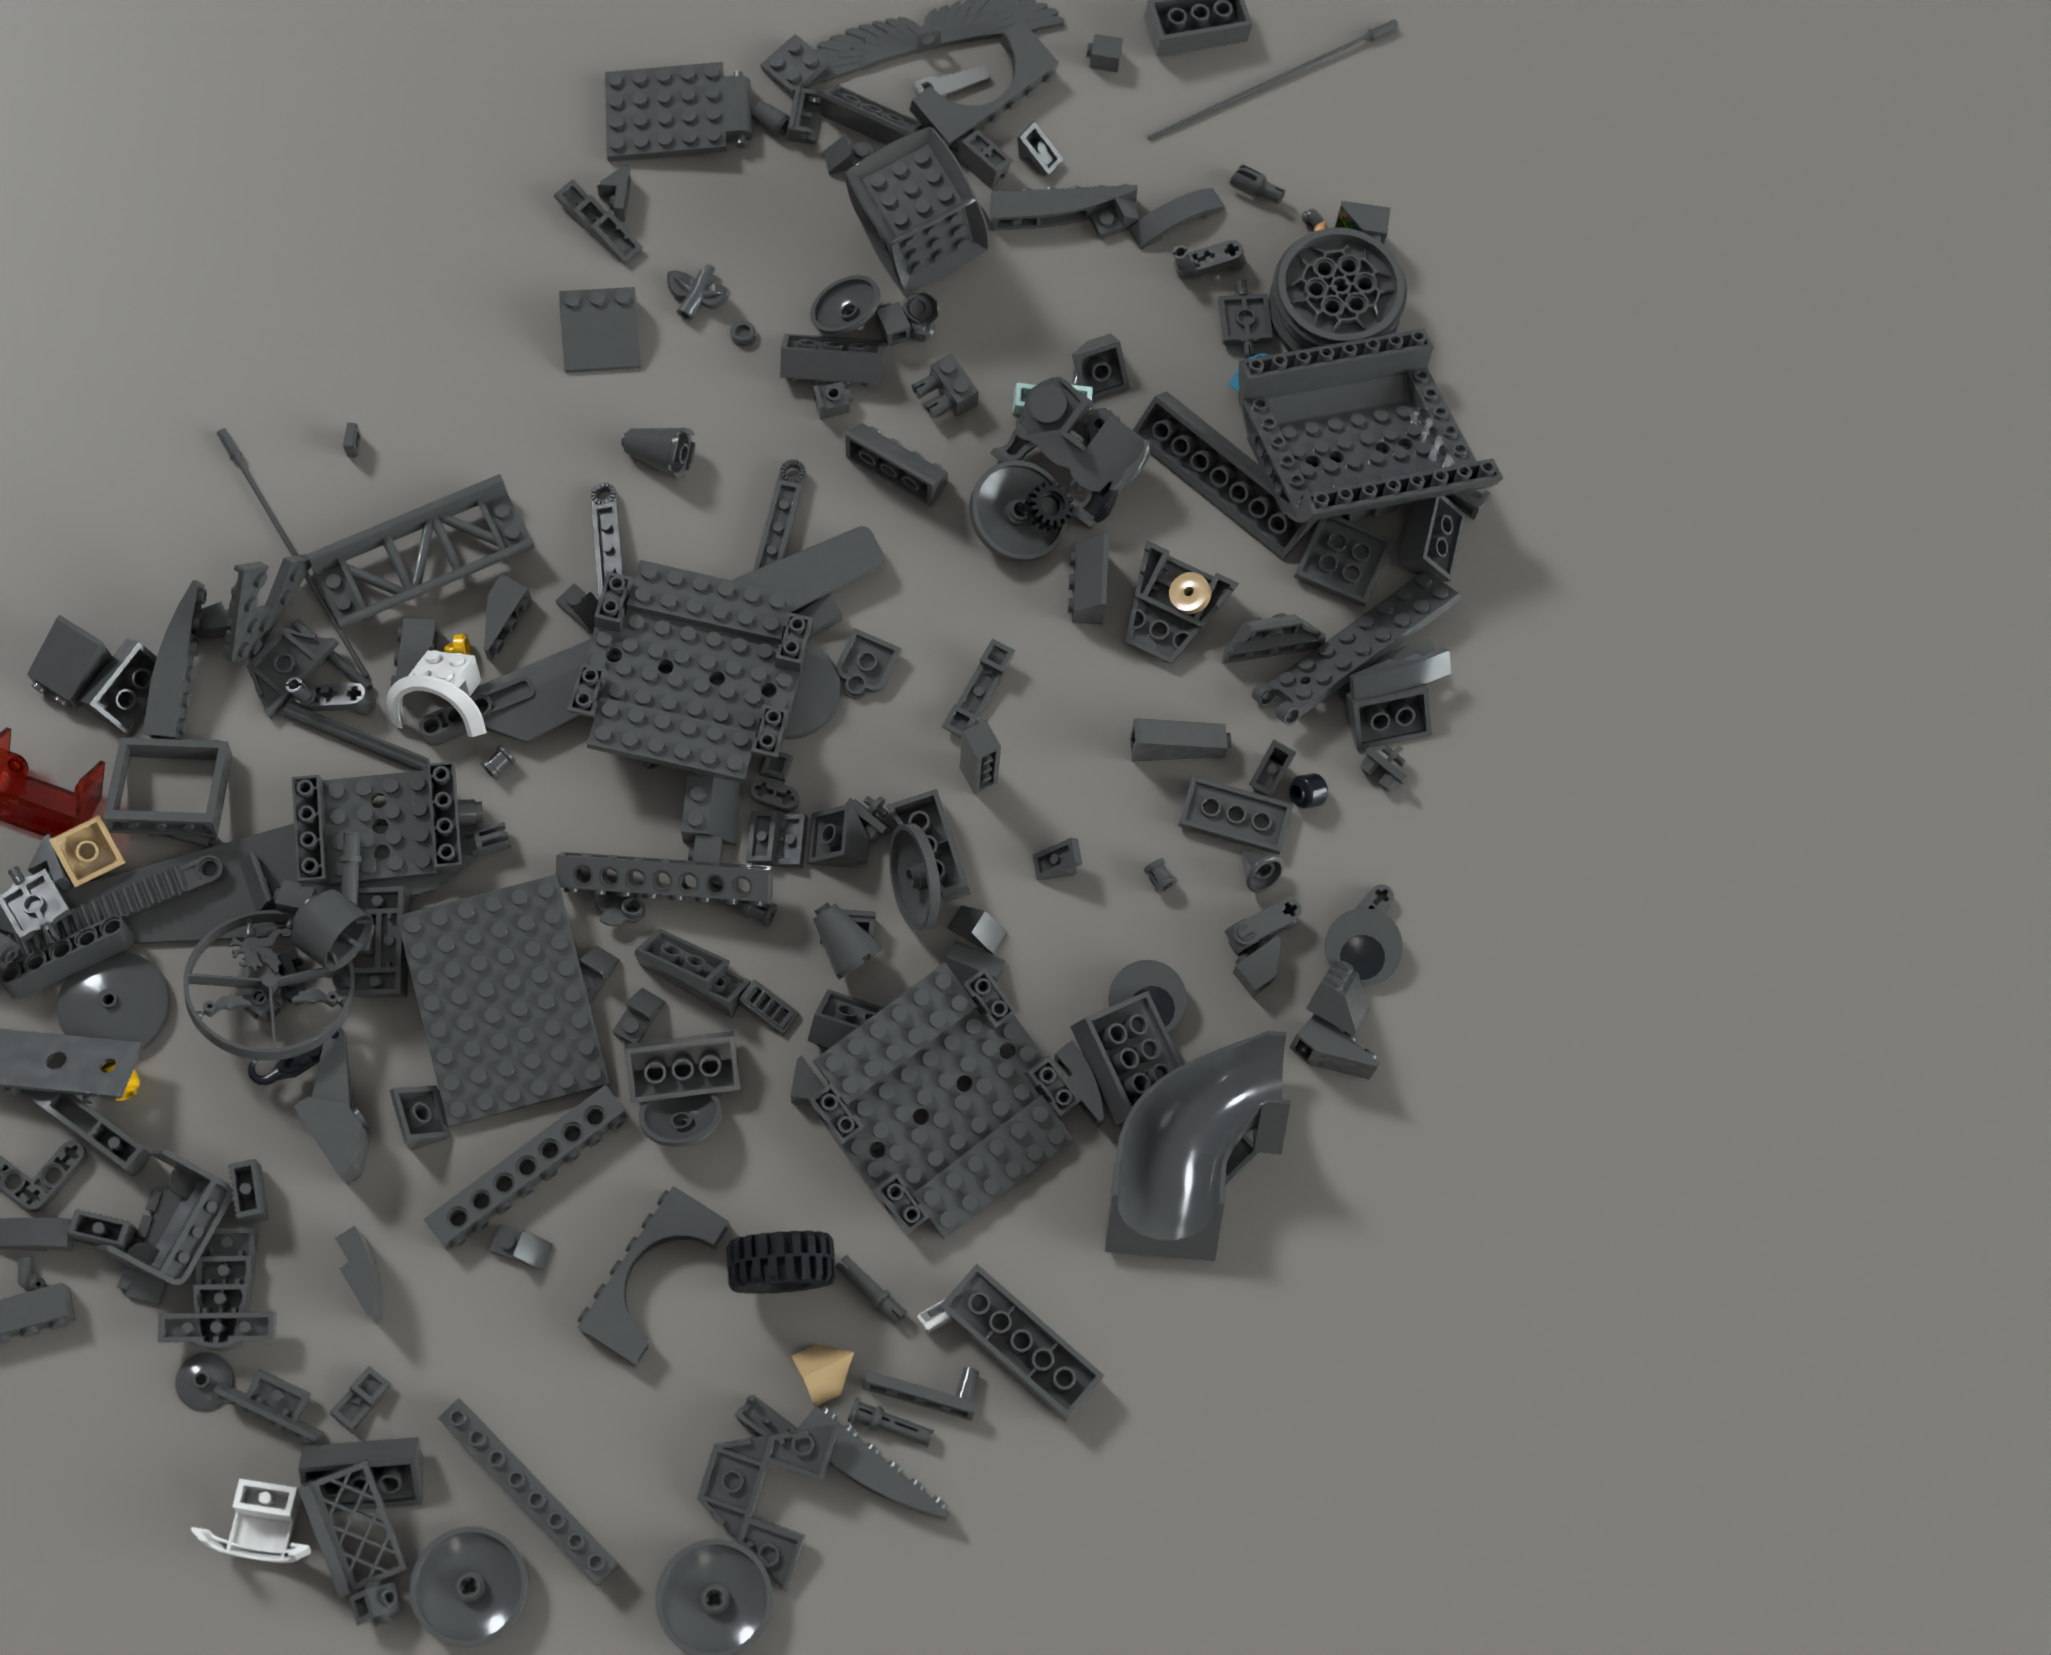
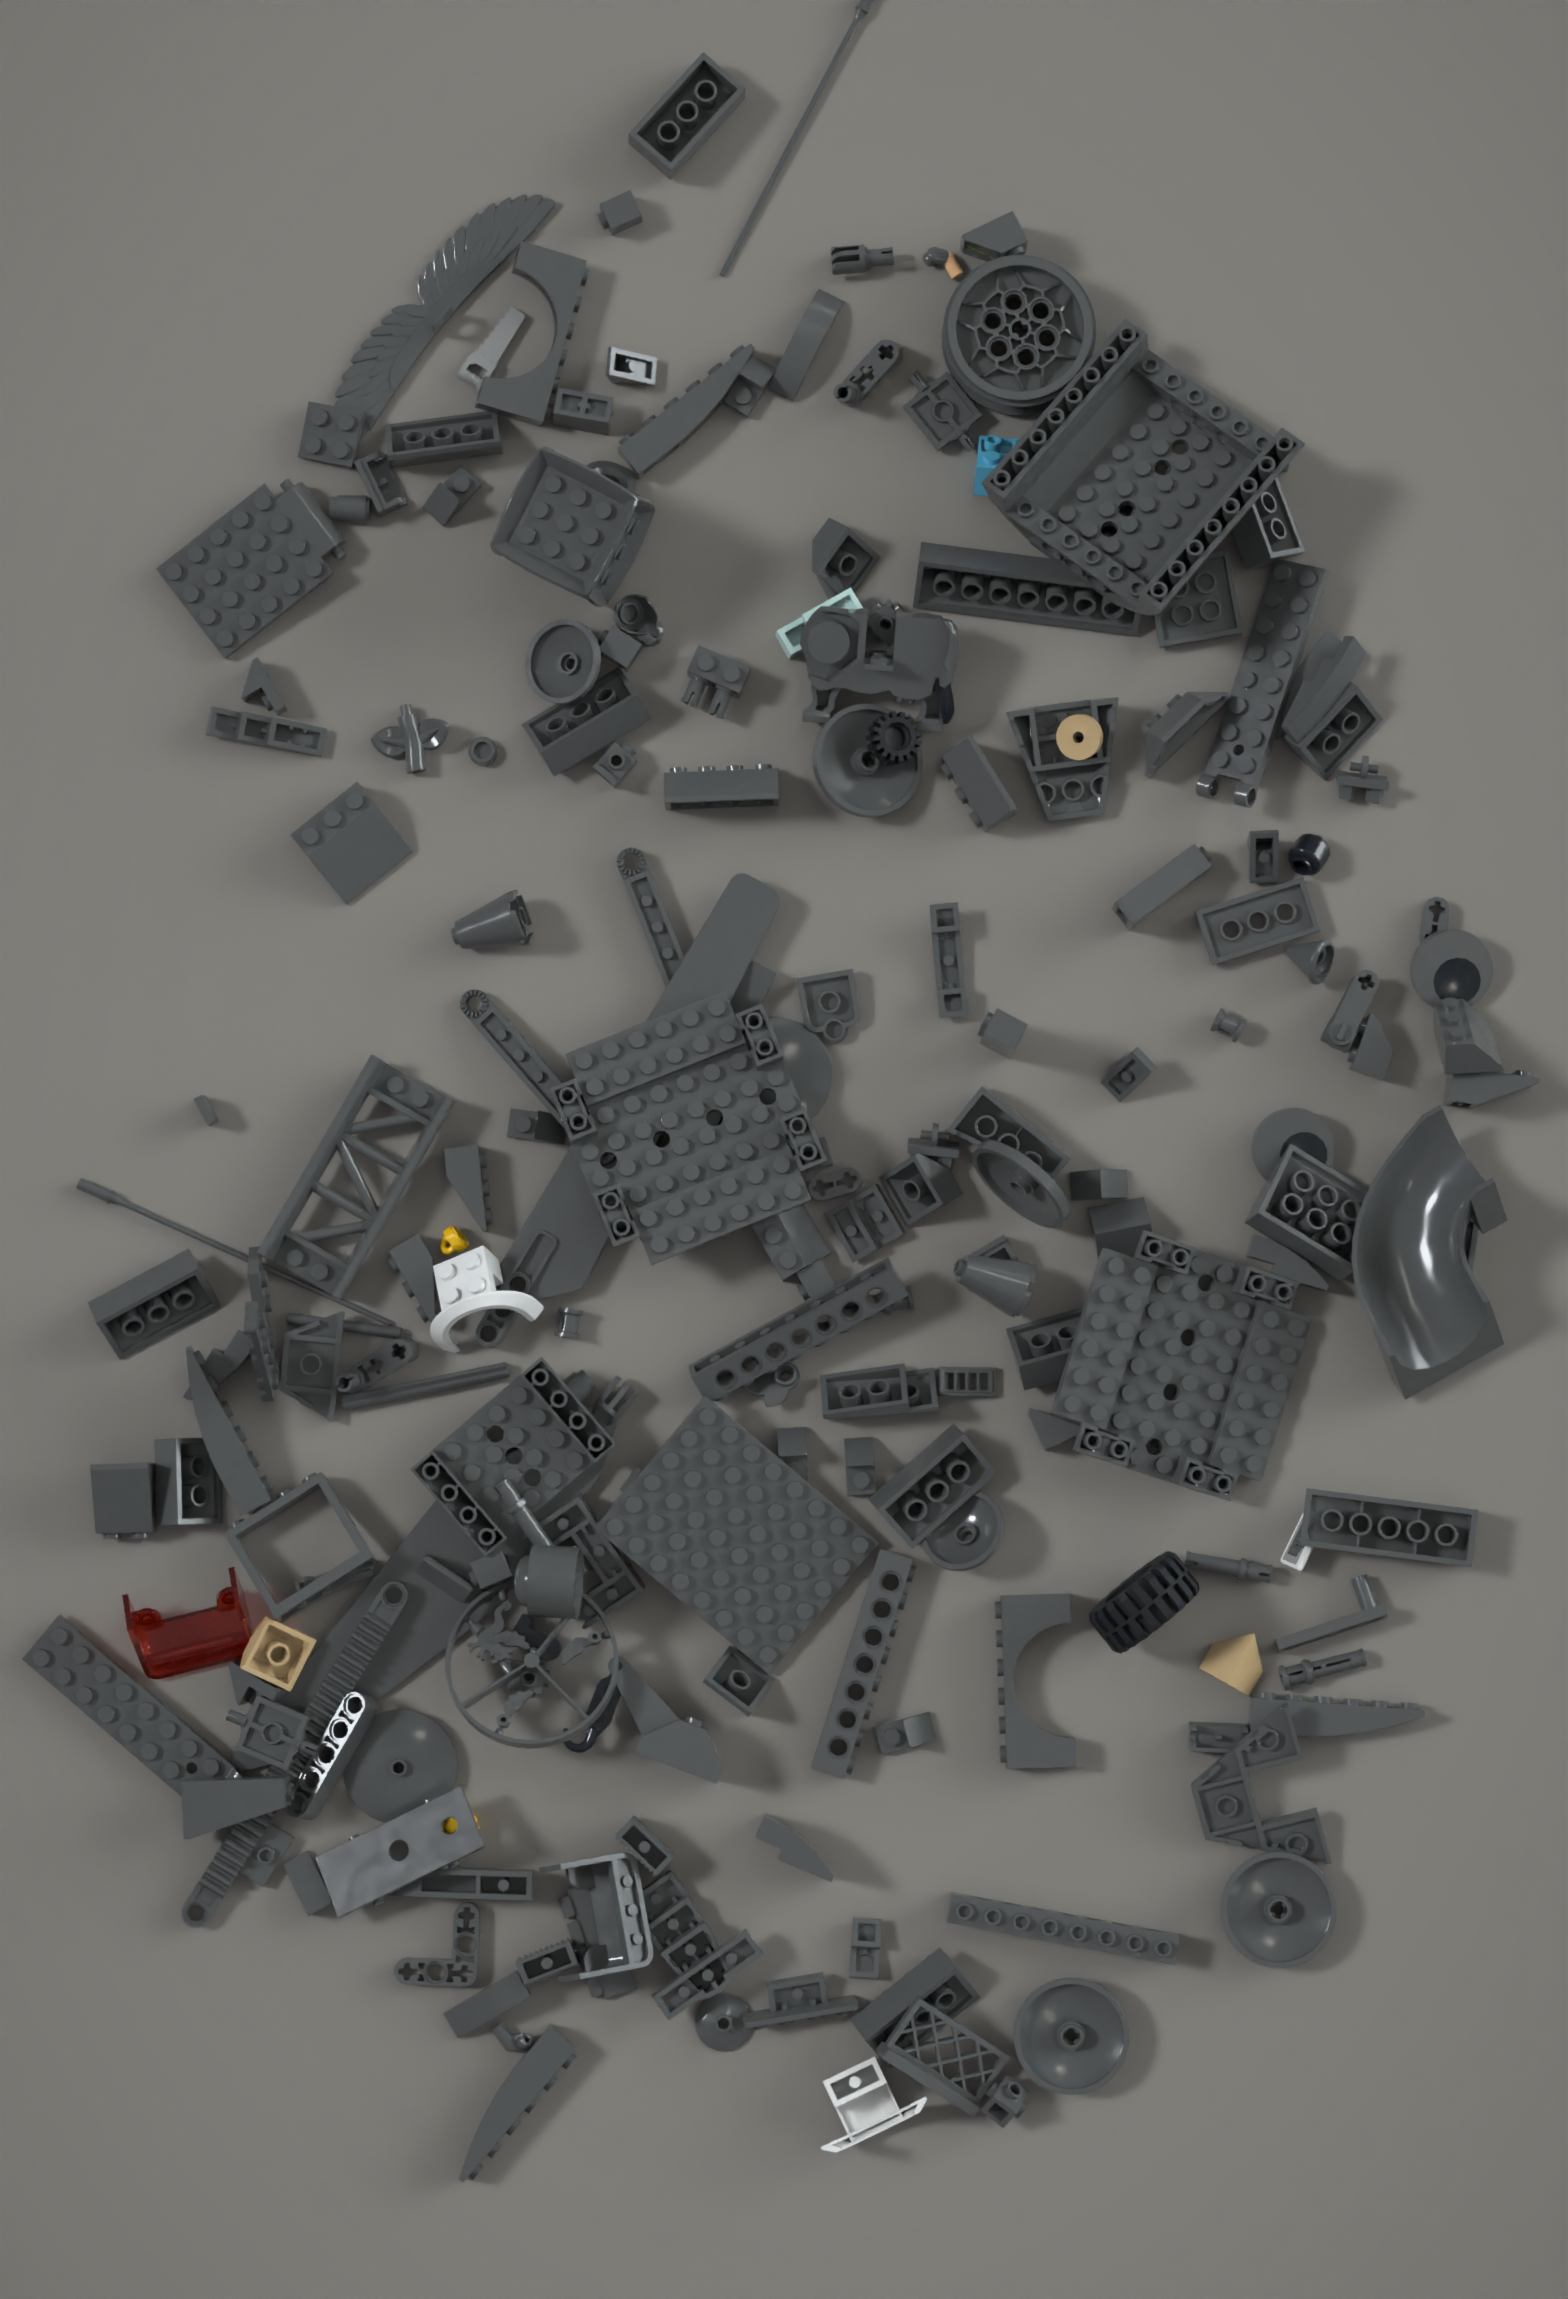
camera: 25 degrees left, 15 degrees up
(202, 545) = (154, 1304): none -> dark grey slope

